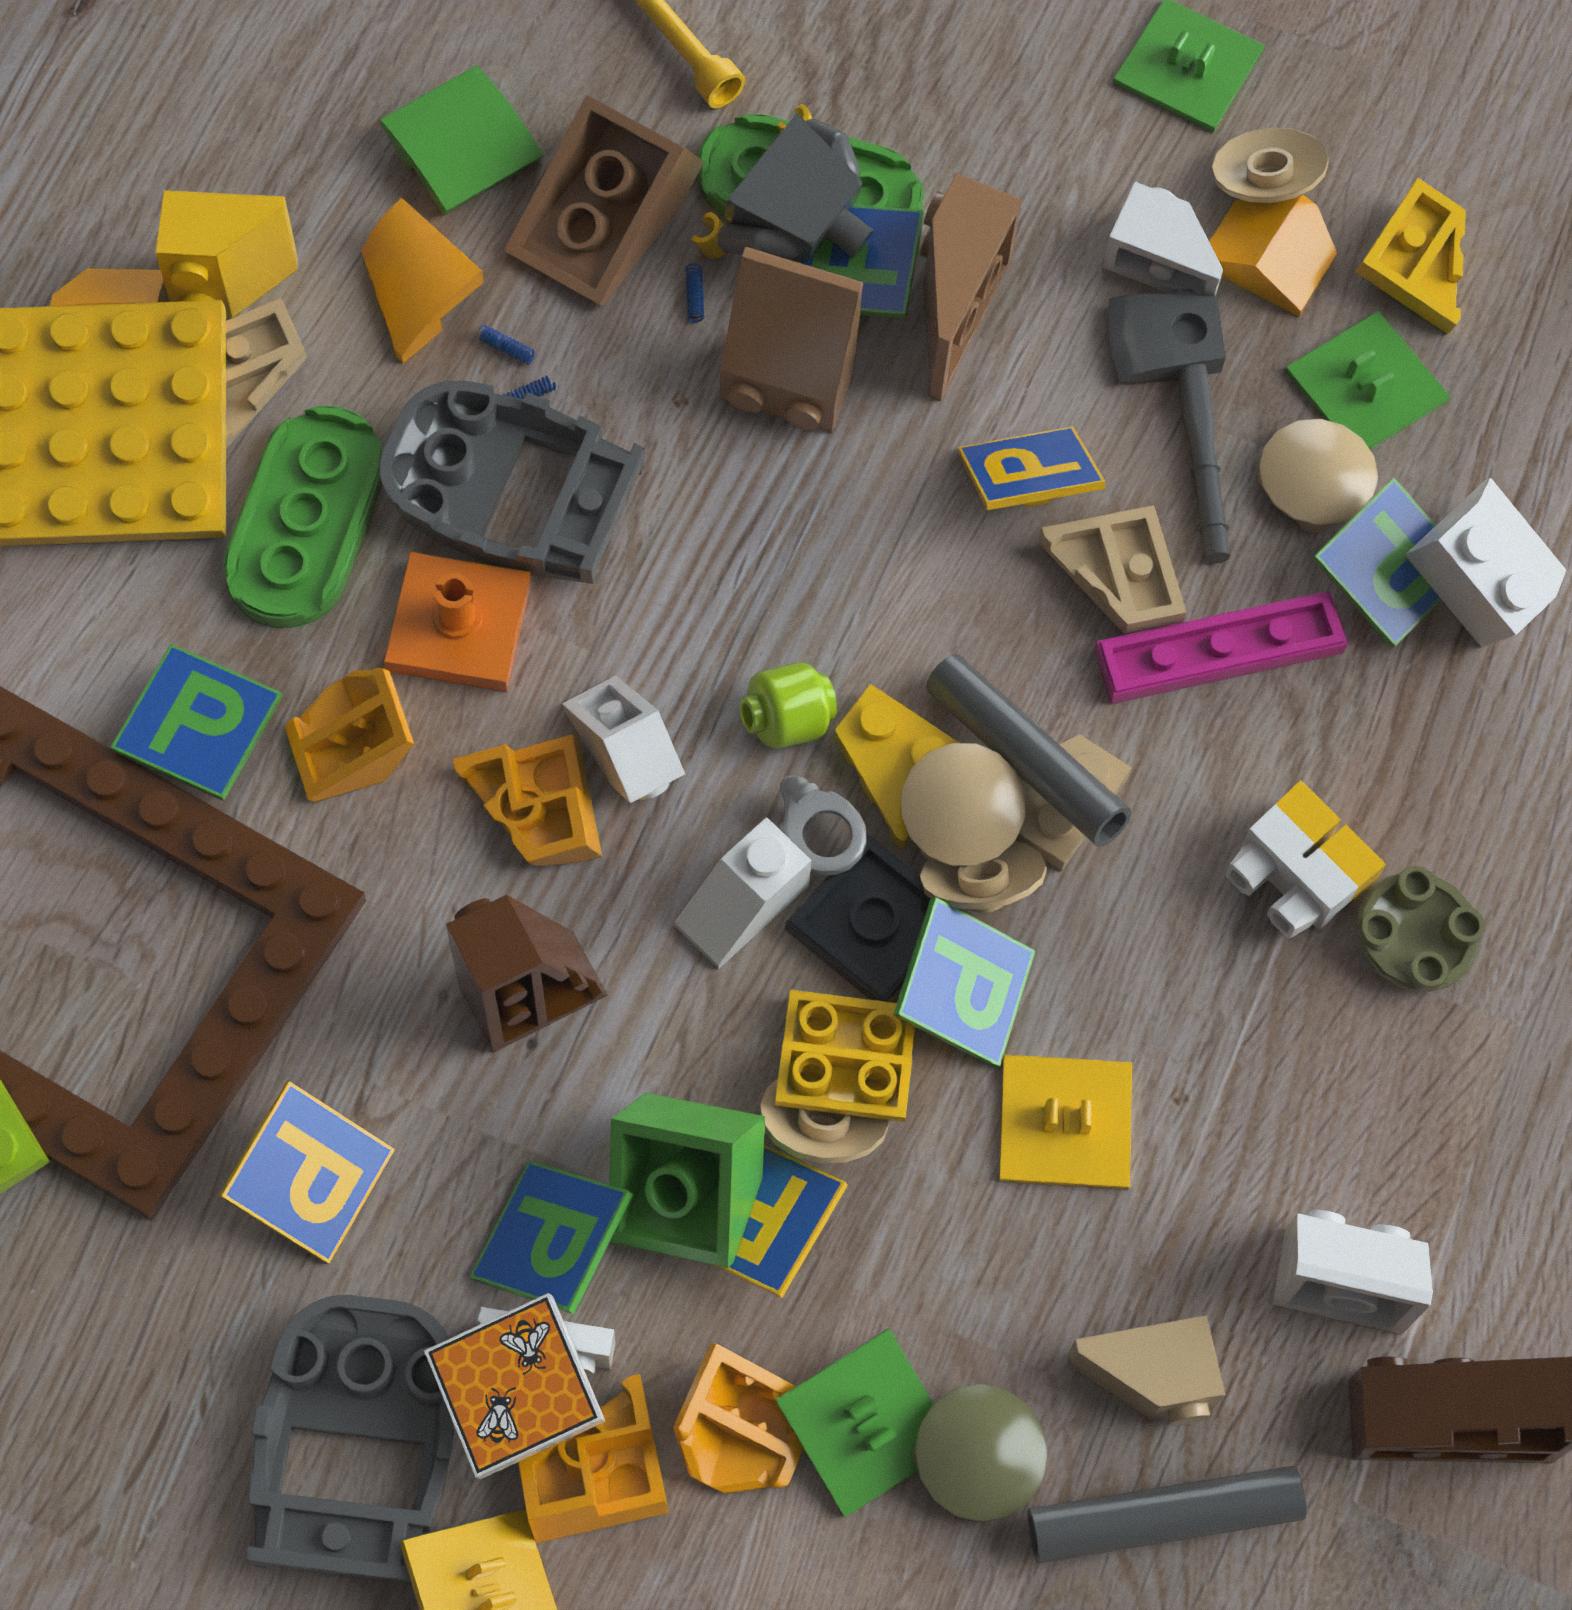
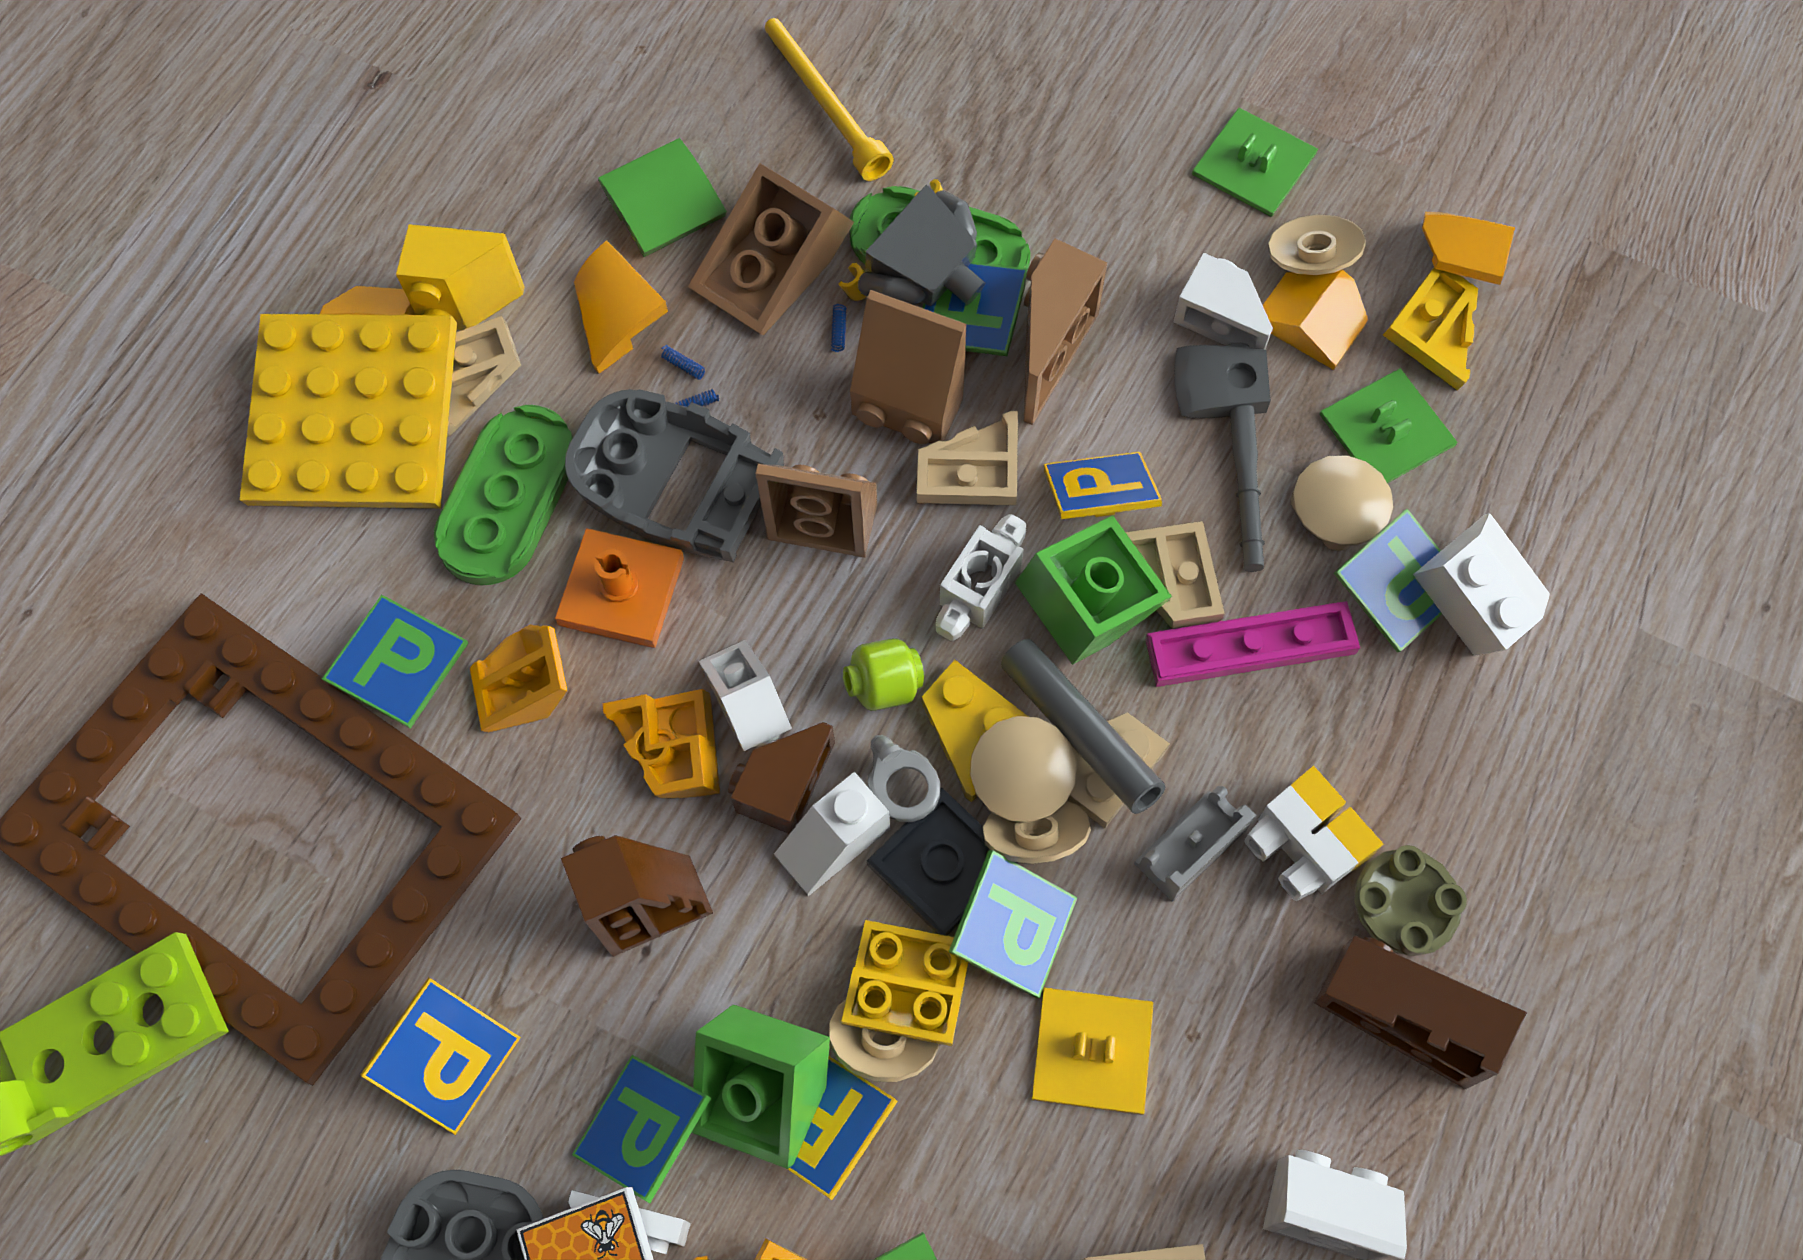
camera: 10 degrees right, 0 degrees up
(677, 833) = (782, 777): none -> reddish brown slope
(693, 514) = (817, 508): none -> medium nougat slope
(872, 454) = (971, 466): none -> tan wing
(907, 550) = (995, 548): none -> white piece
(1027, 591) = (1091, 588): none -> bright green slope
(1168, 879) = (1194, 842): none -> light grey hinge
(1436, 1049) = (1420, 1012): none -> reddish brown wedge
(1450, 158) = (1468, 245): none -> light orange slope

